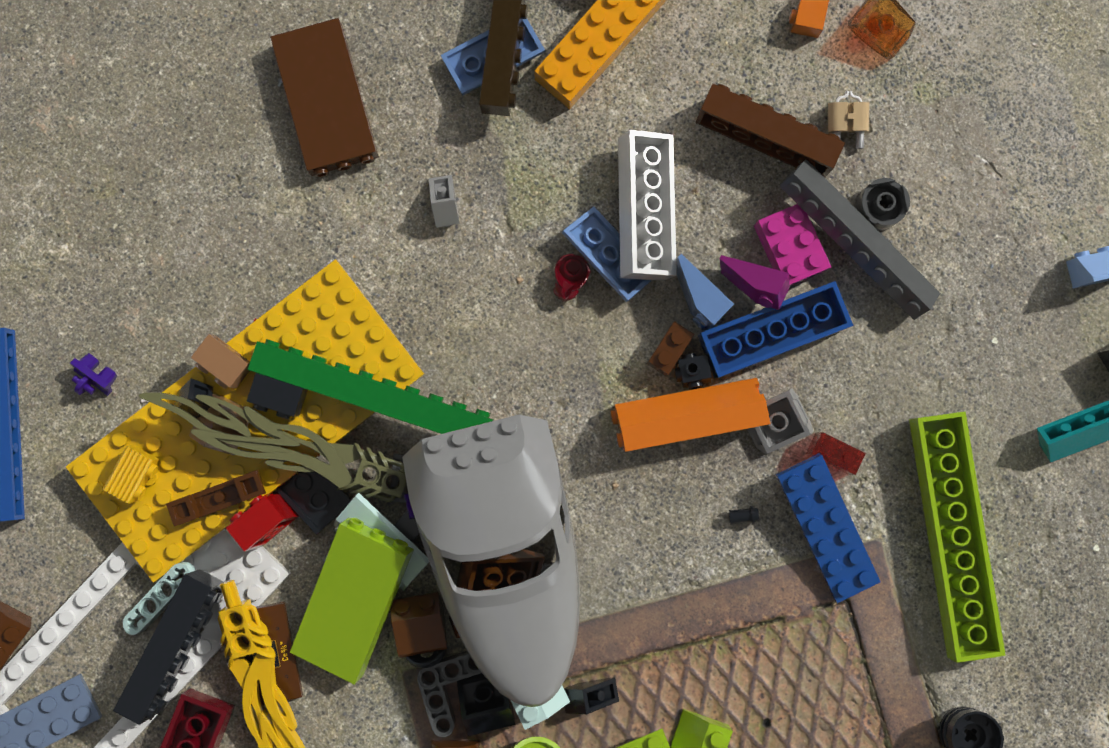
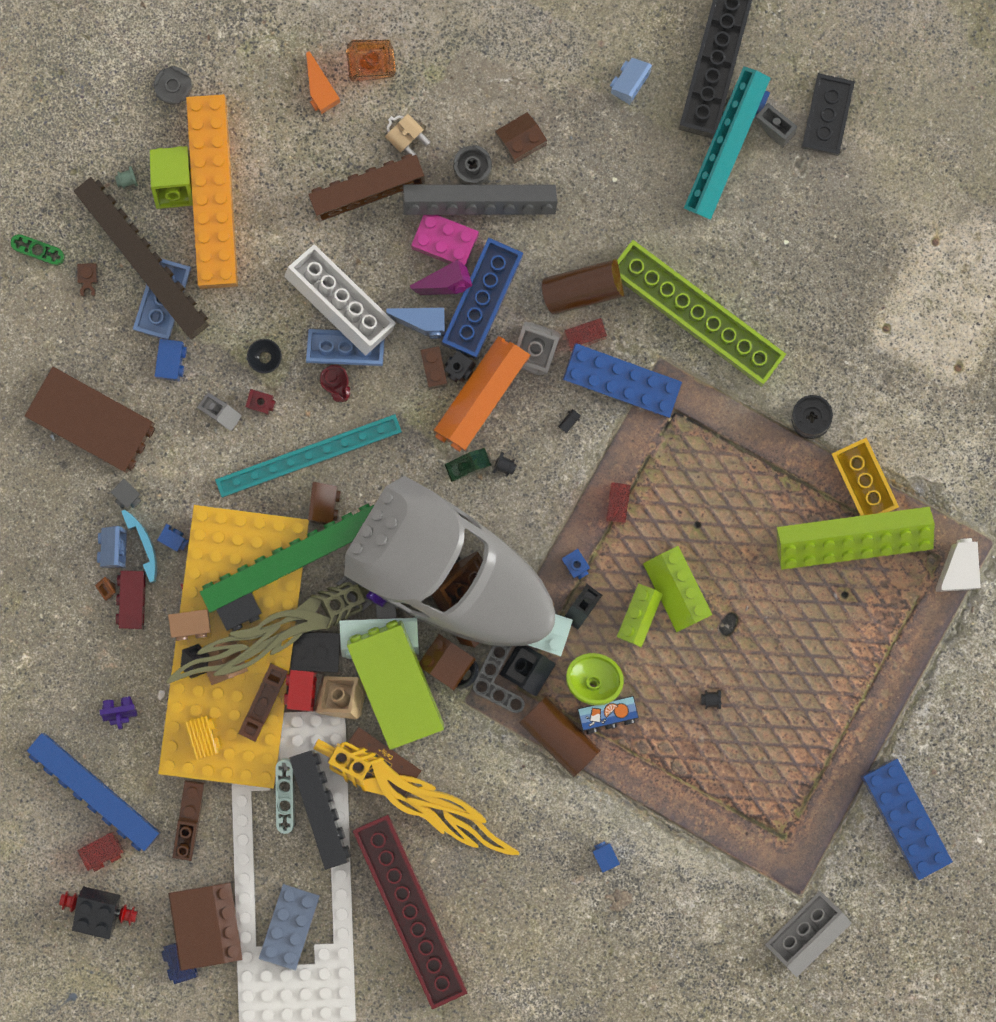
camera: 45 degrees left, 0 degrees up
(54, 534) = (188, 820): none -> reddish brown slope
(192, 257) = (106, 588): none -> dark orange slope
(202, 289) = (131, 599): none -> dark red brick
(231, 228) = (113, 547): none -> medium blue slope
(247, 279) = (150, 567): none -> medium azure slope
(290, 193) = (126, 495): none -> dark grey brick
(291, 271) = (173, 539): none -> blue brick
(293, 560) = (340, 697): none -> tan slope
(446, 113) = (170, 360): none -> blue brick
(452, 372) = (323, 503): none -> reddish brown slope
(480, 220) = (252, 402): none -> dark red brick
(482, 317) = (308, 456): none -> teal plate
(531, 179) = (257, 349): none -> black piece
(615, 464) = (467, 464): none -> clear green slope
(622, 651) = (576, 564): none -> blue brick
(646, 498) = (504, 465): none -> black brick
(715, 634) = (618, 503): none -> clear red brick
(876, 410) = (582, 287): none -> reddish brown brick
(949, 223) = (521, 137): none -> reddish brown slope

